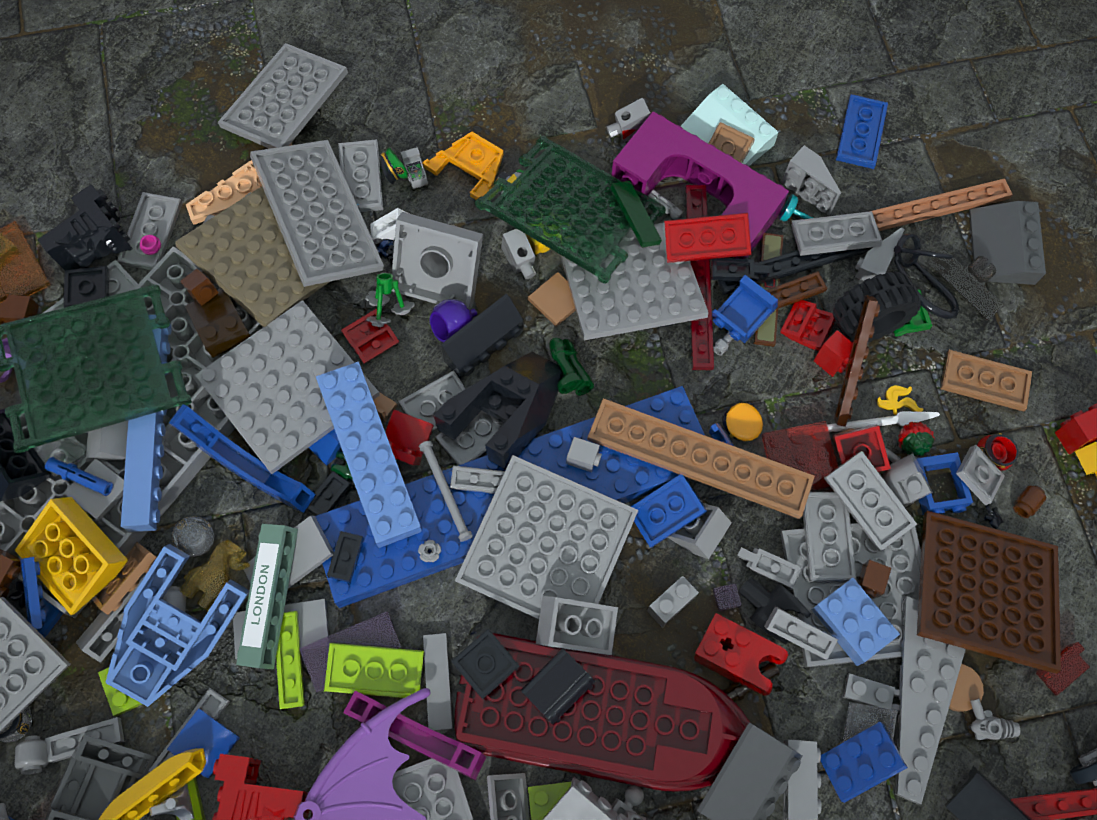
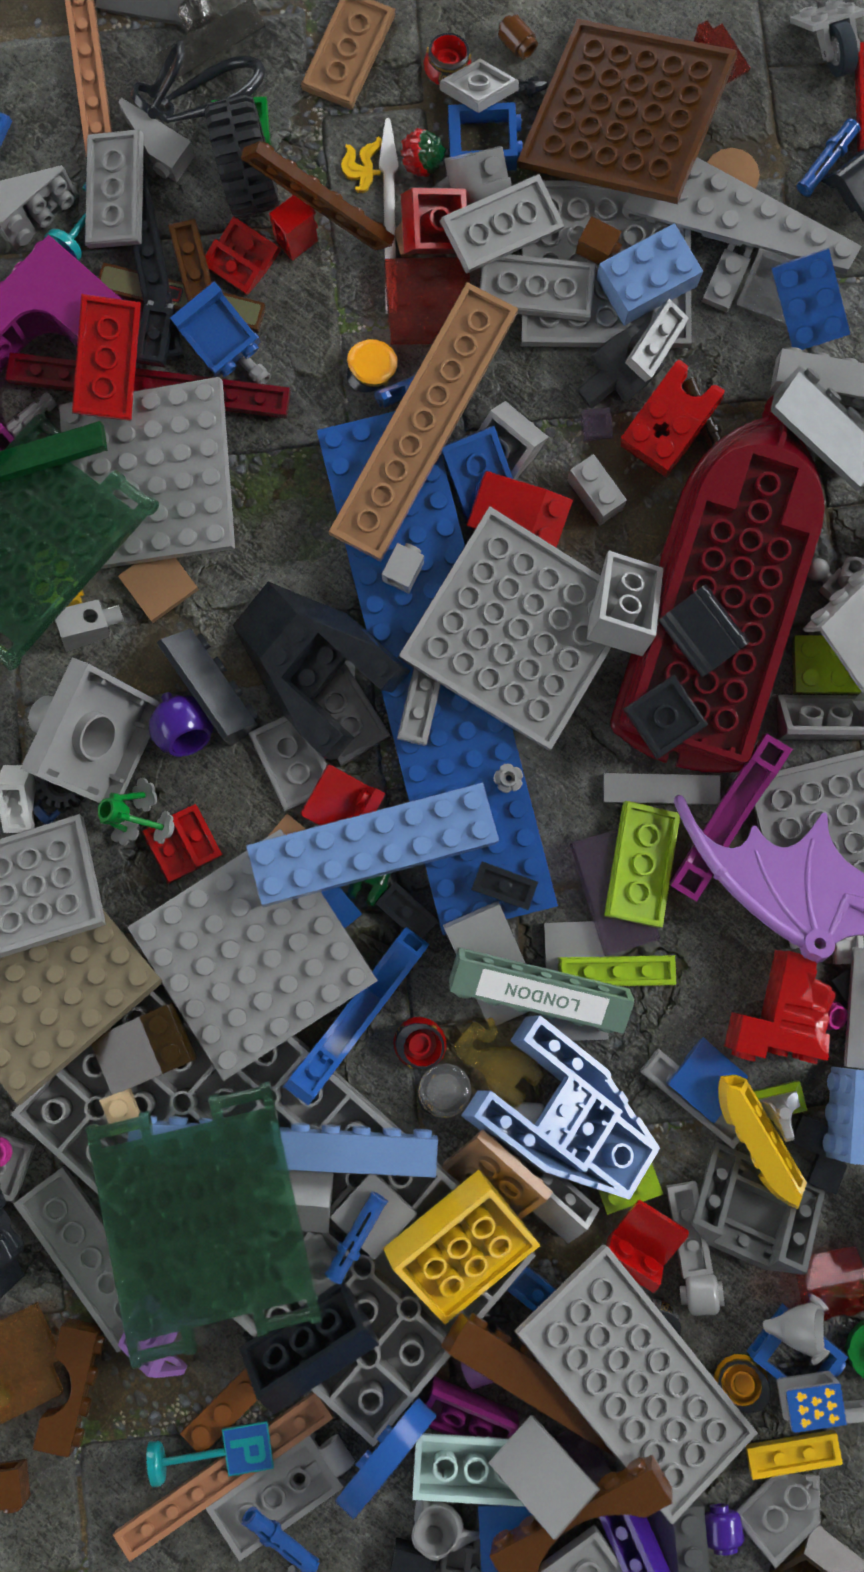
camera: 80 degrees left, 15 degrees up
(32, 592) = (506, 1296): blue plate -> none
(70, 701) = (646, 1243): none -> red bracket
(85, 285) = (56, 1244): black tile -> none
(176, 312) = (120, 1106): none -> tan plate
(199, 287) = (89, 1071): reddish brown brick -> none
(229, 516) = (419, 1043): none -> red piece
(464, 535) = (428, 752): light grey bar -> none
(574, 374) = (280, 569): dark green piece -> none
(645, 543) = (526, 504): none -> red slope
(771, 566) = (567, 362): light grey hinge -> none
(991, 727) = (781, 148): light grey piece -> none
(1005, 775) = (846, 134): none -> blue pin

